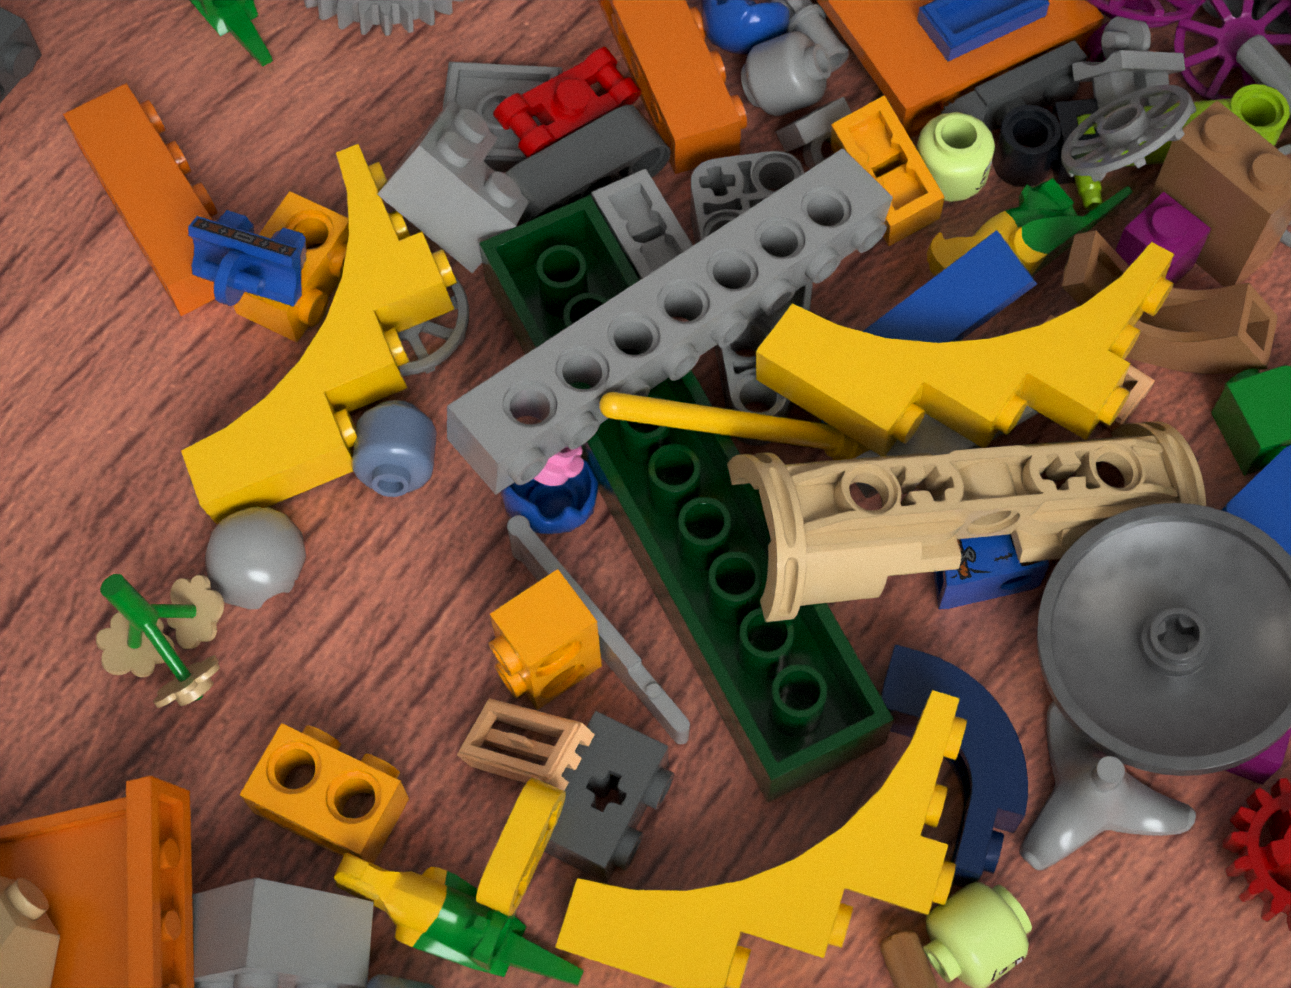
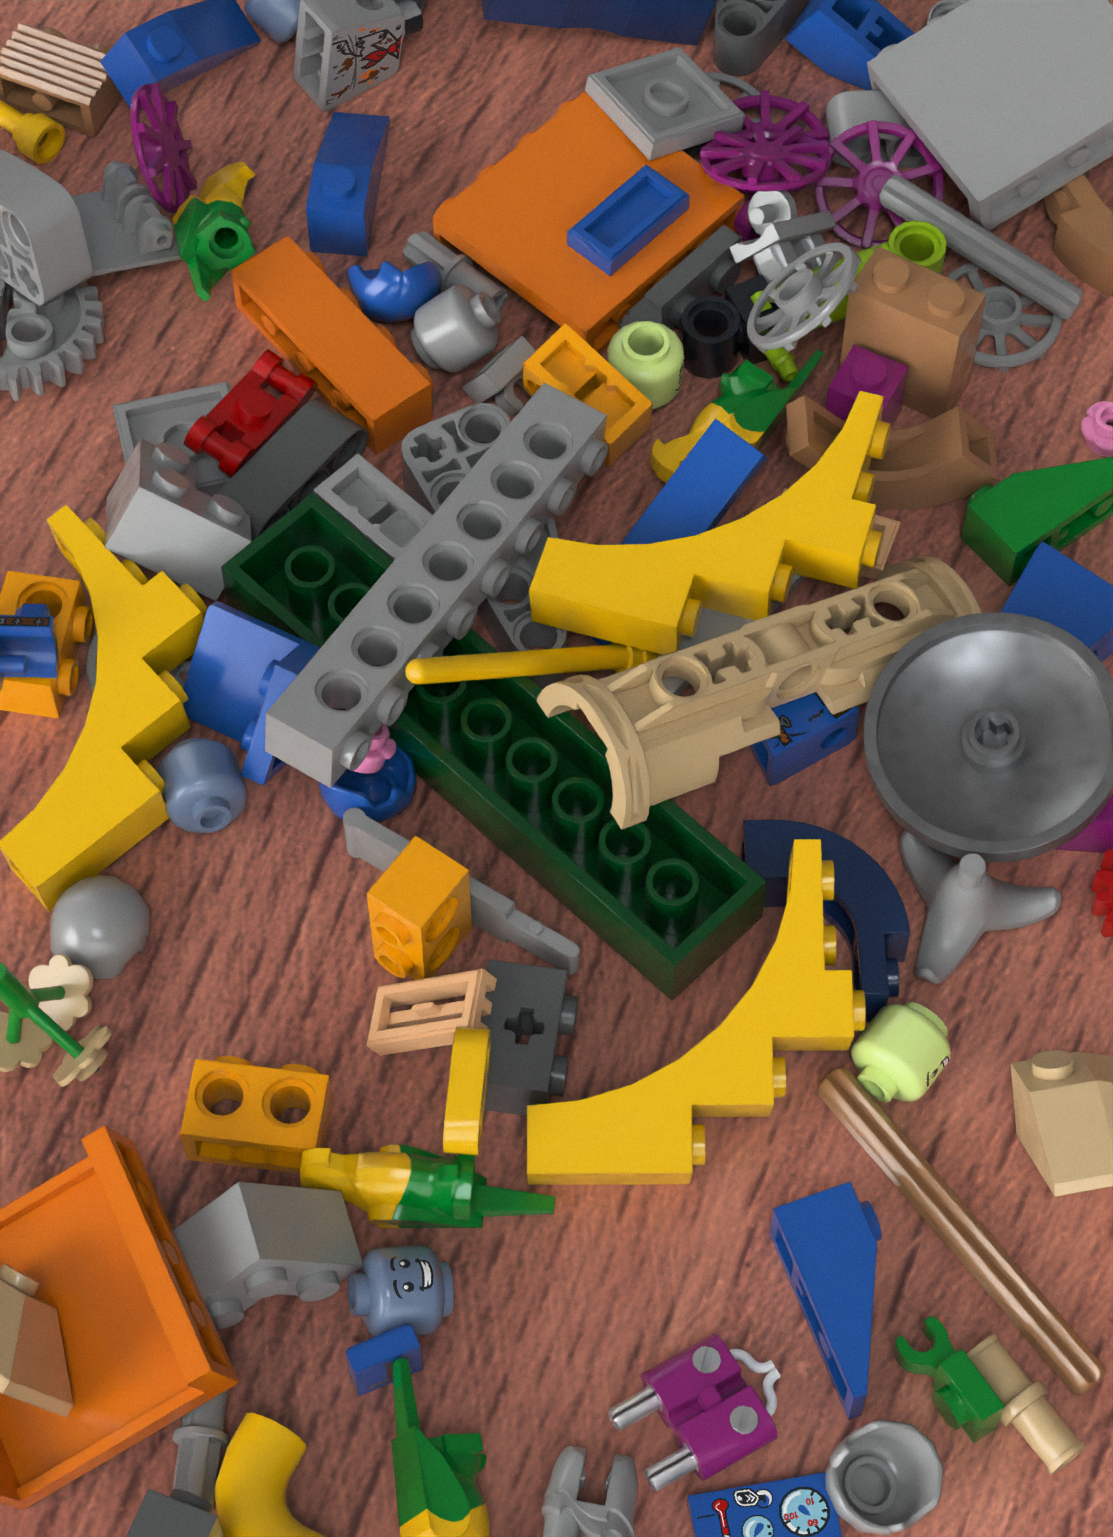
camera: 20 degrees left, 5 degrees down
(460, 349) = (238, 677): none -> blue bracket

